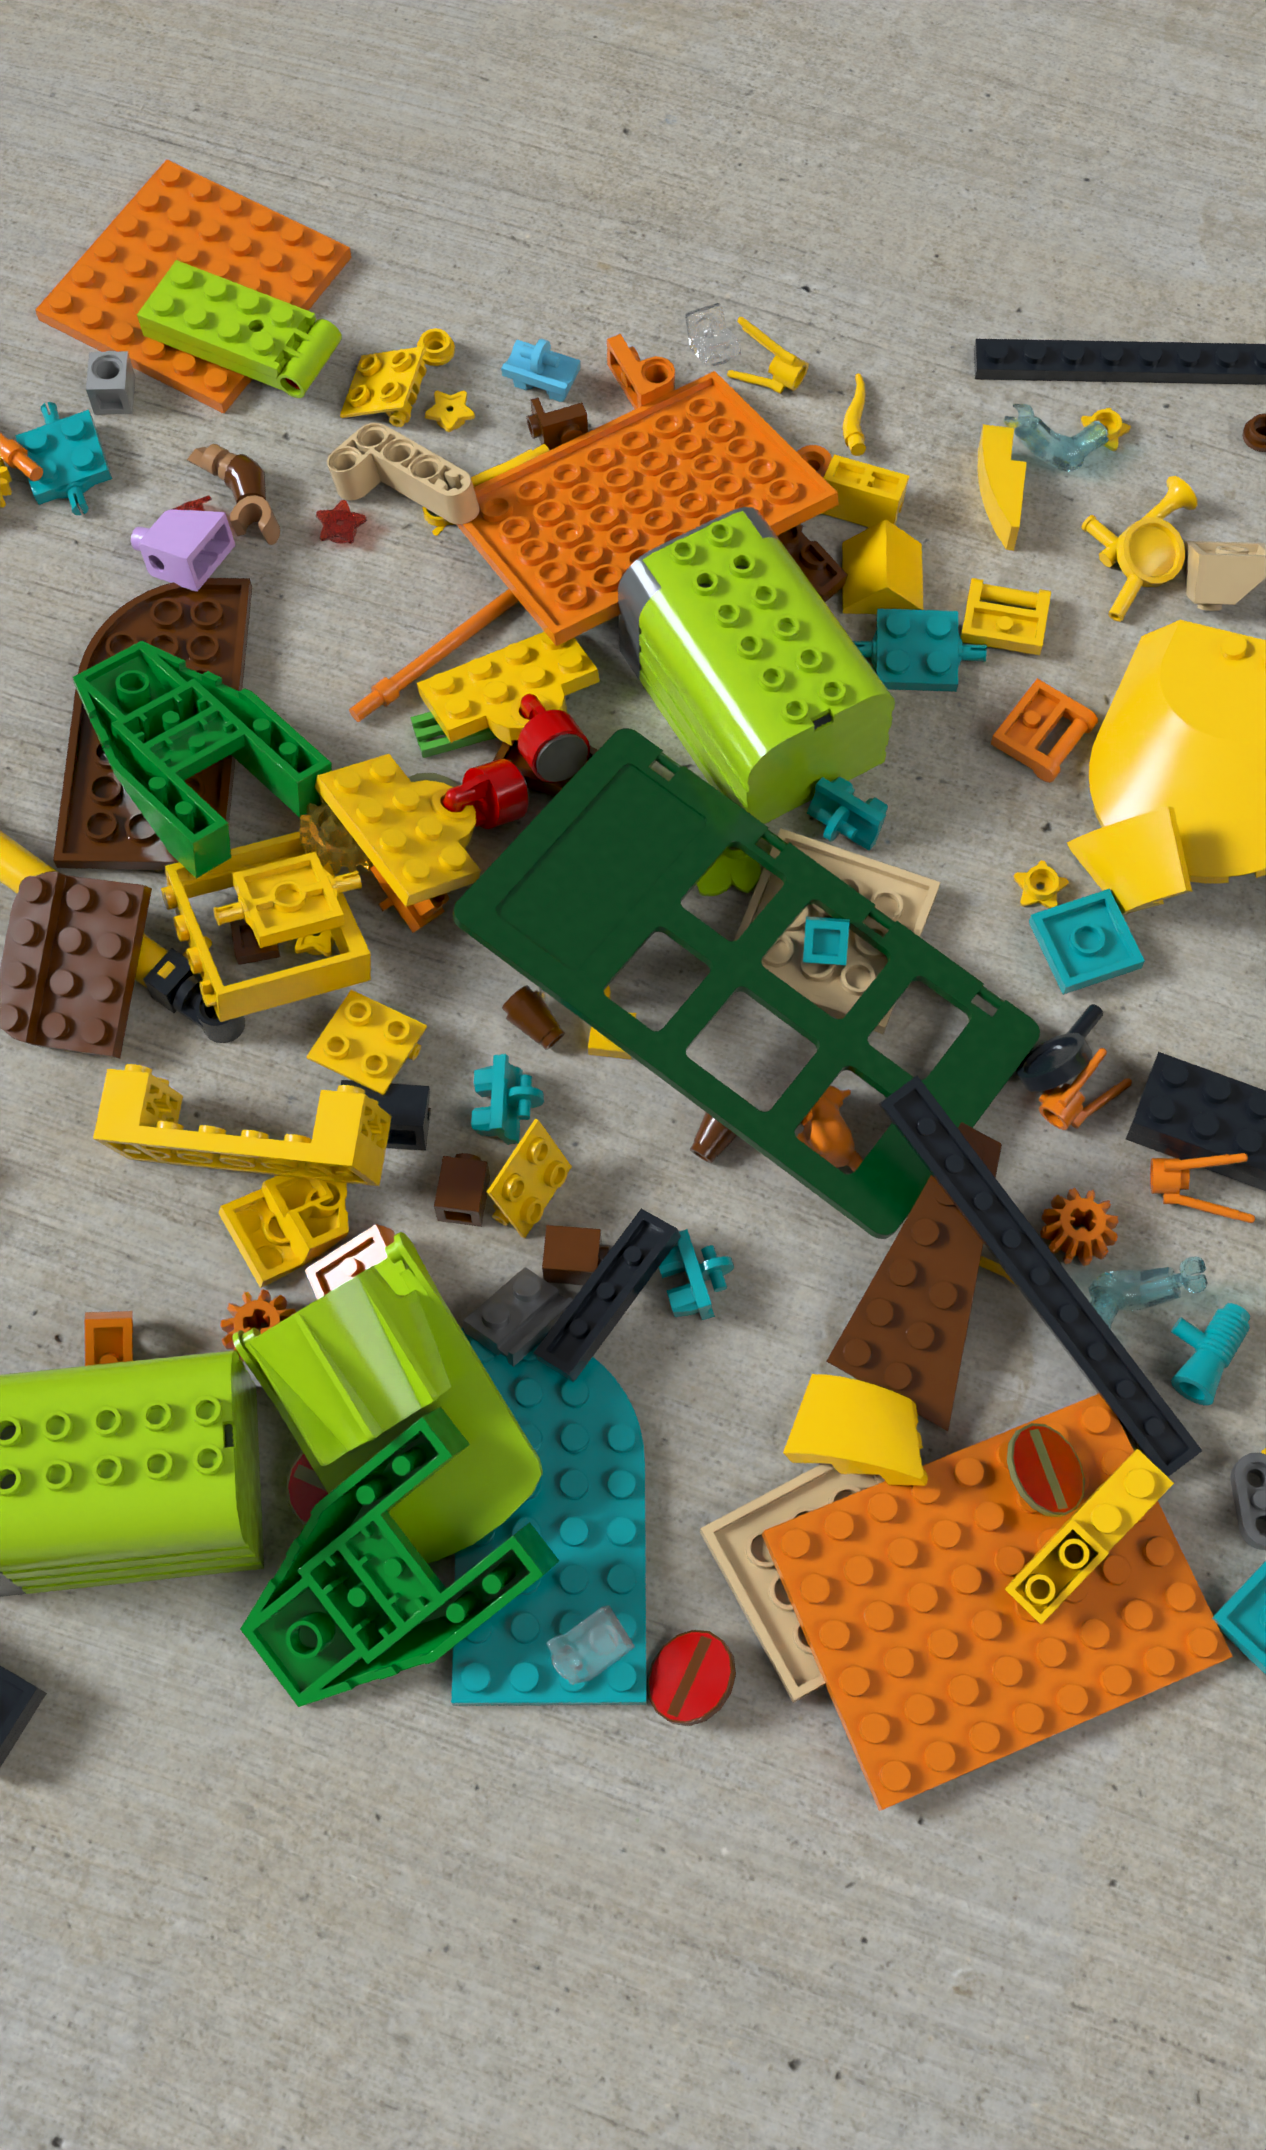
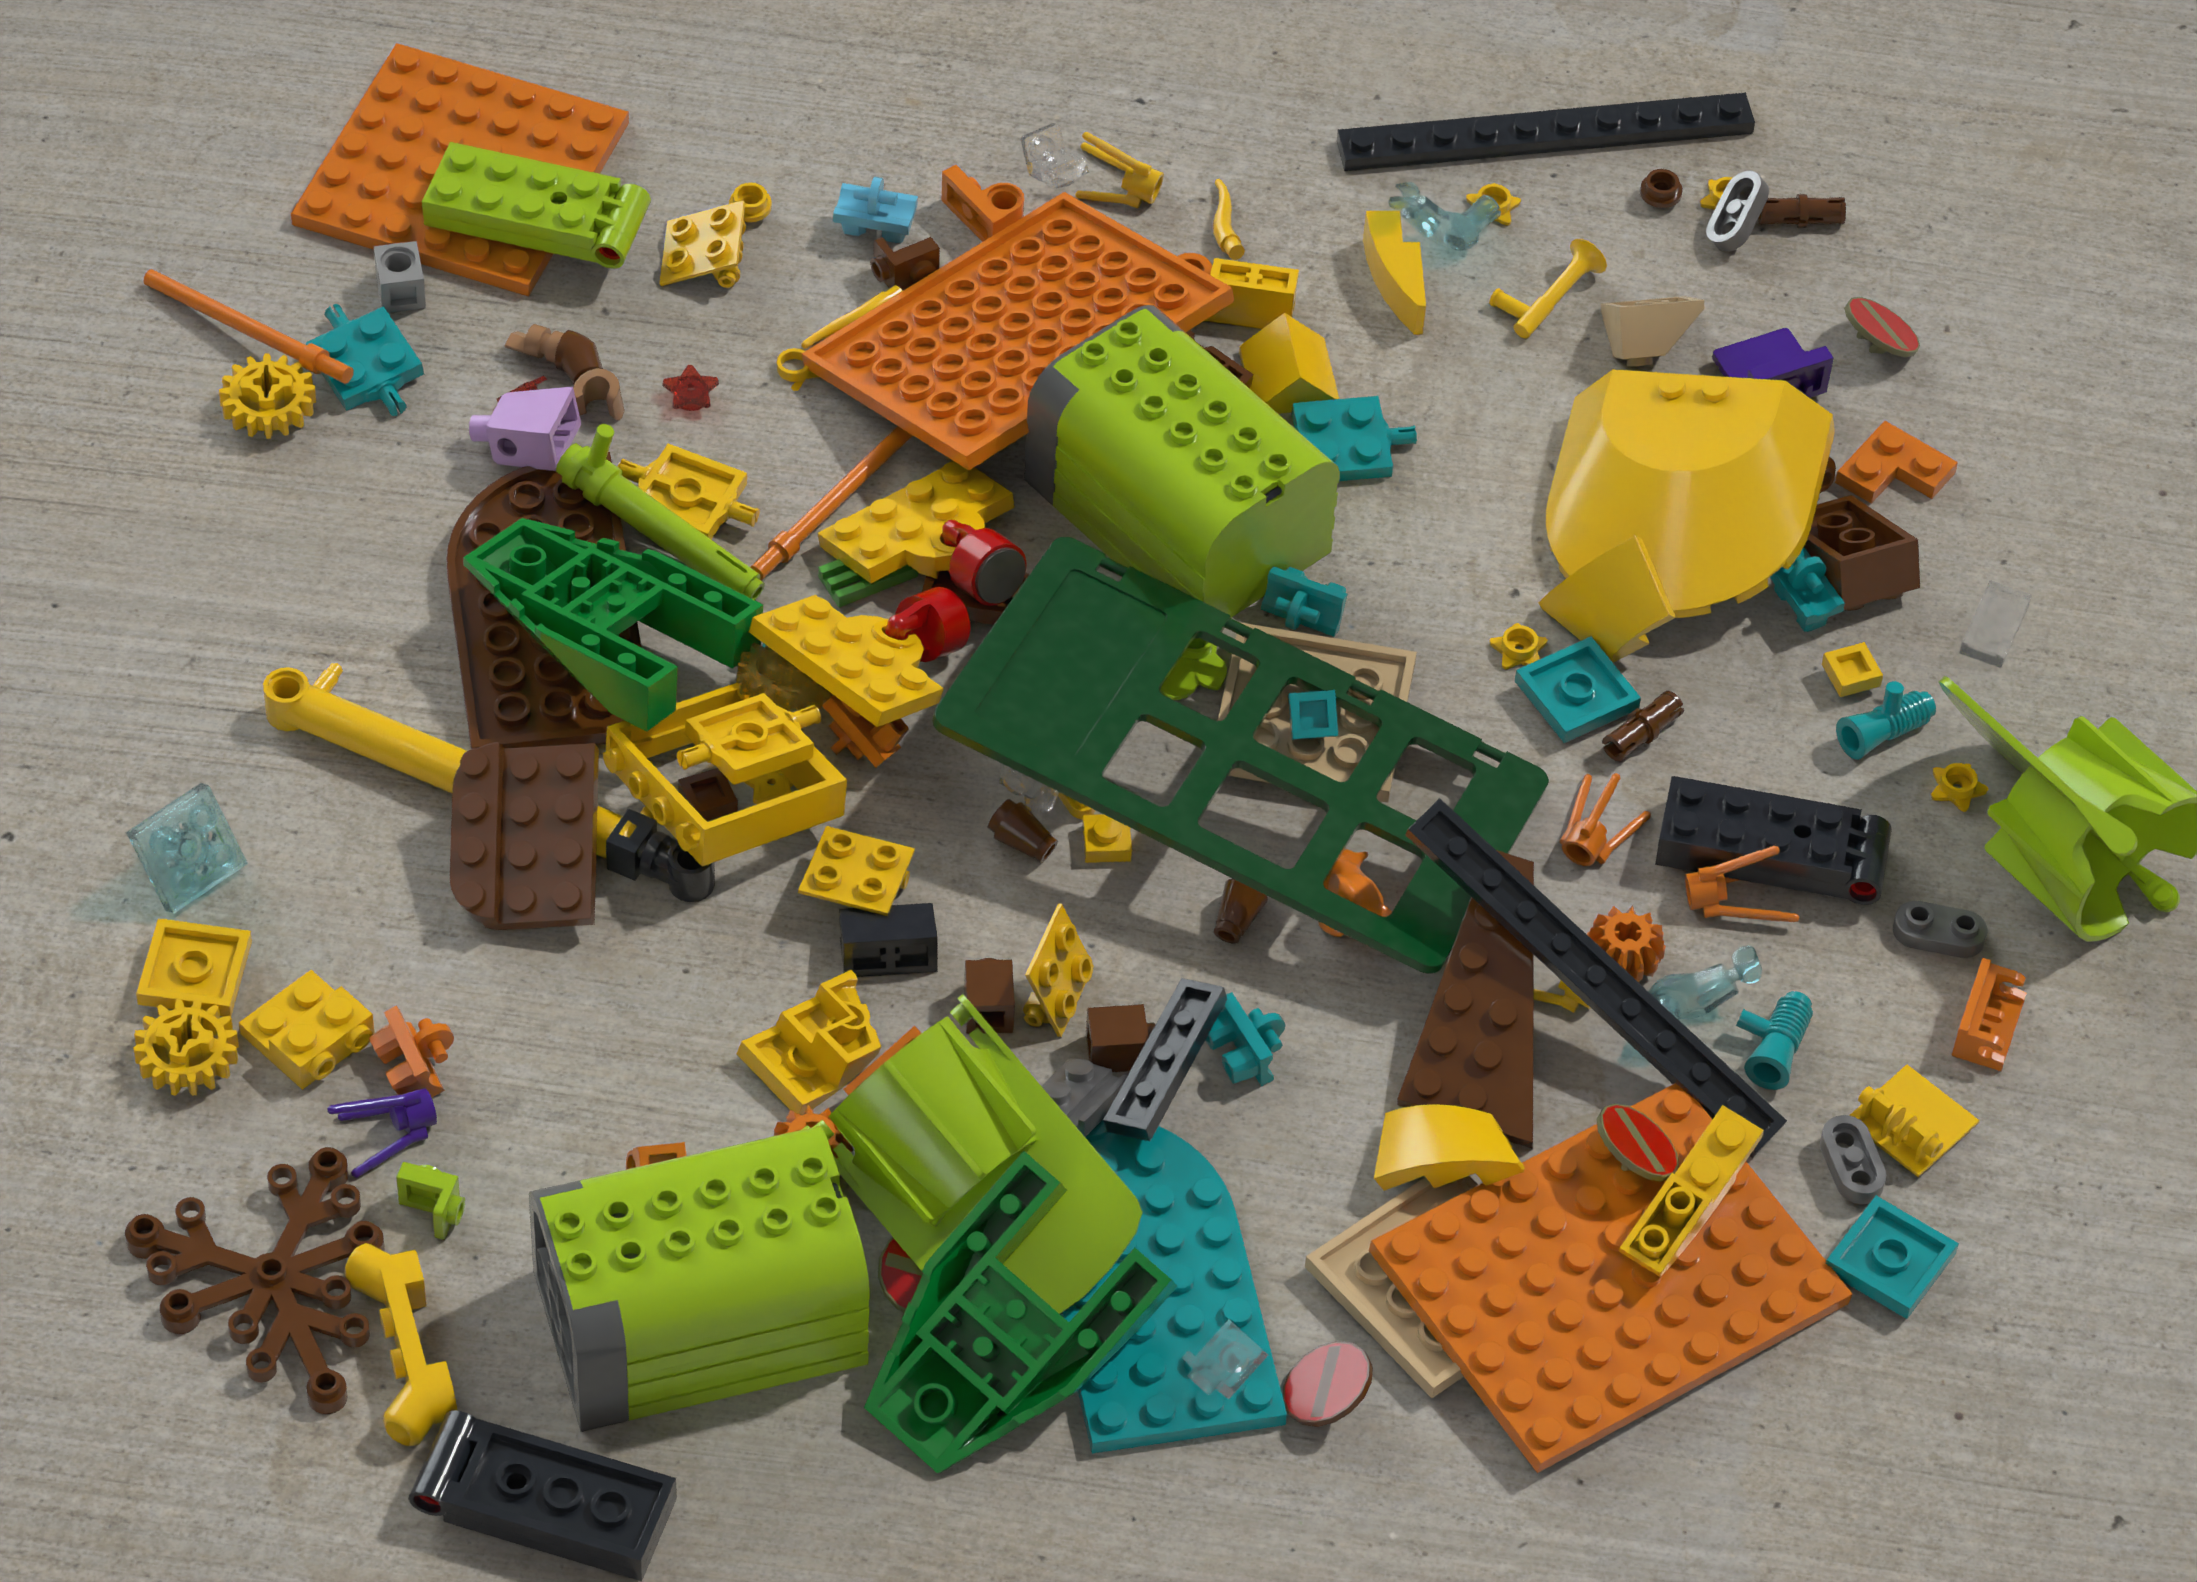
camera: 15 degrees left, 15 degrees down
(142, 1116) = (665, 985): yellow plate -> none
(231, 613) = (605, 485): none -> lime cylinder
(310, 627) = (694, 488): none -> yellow plate
(385, 456) = (756, 323): tan beam -> none
(453, 419) = (779, 273): yellow plate -> none
(510, 1100) = (1016, 904): teal hips -> none
(1005, 625) = (1428, 397): yellow plate -> none
(1034, 720) = (1479, 492): orange plate -> none
(1061, 1056) = (1574, 793): black piece -> none
(1141, 988) = (1643, 726): none -> reddish brown pin
(1149, 556) = (1567, 321): yellow piece -> none

